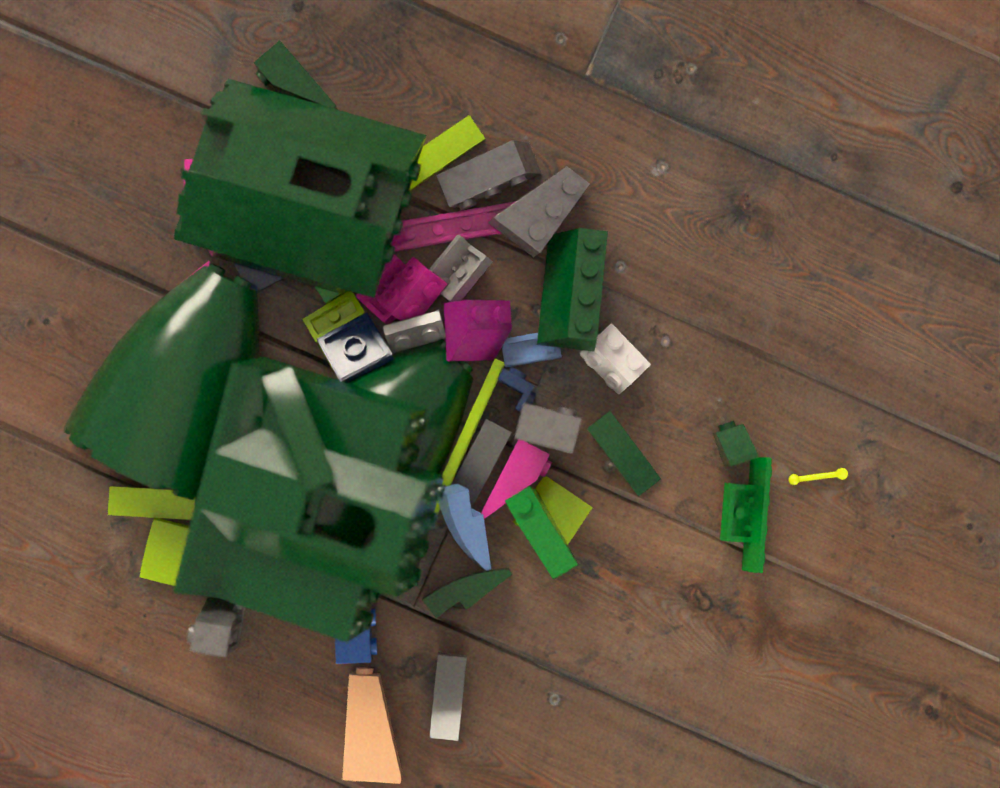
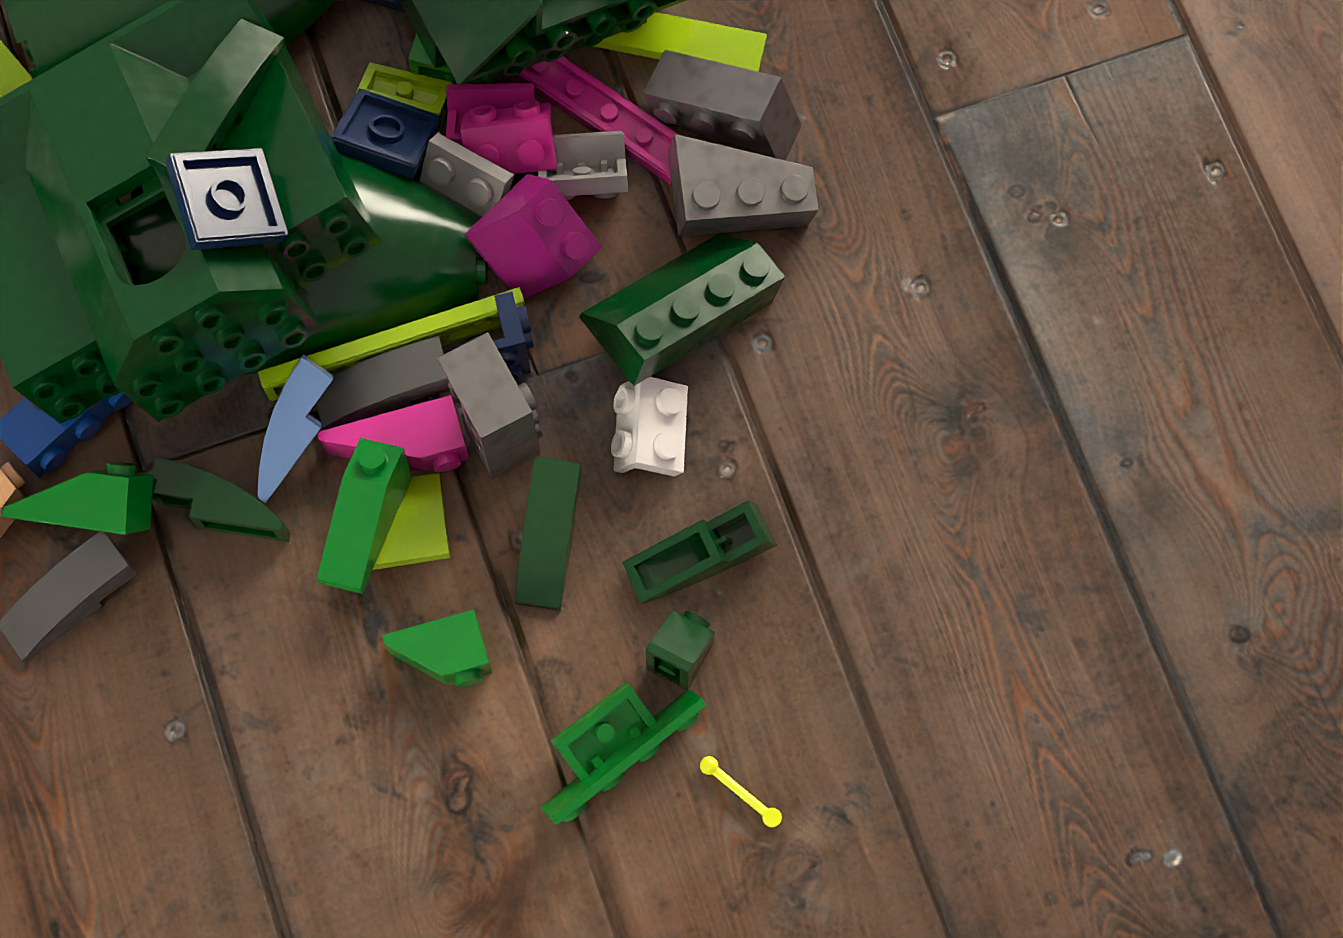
camera: 50 degrees right, 15 degrees down
(363, 471) = (226, 198): none -> tile
(421, 644) = (97, 500): none -> green slope
(524, 350) = (558, 320): medium blue tile -> none
(634, 549) = (444, 649): none -> green slope
(696, 393) = (699, 552): none -> dark green slope

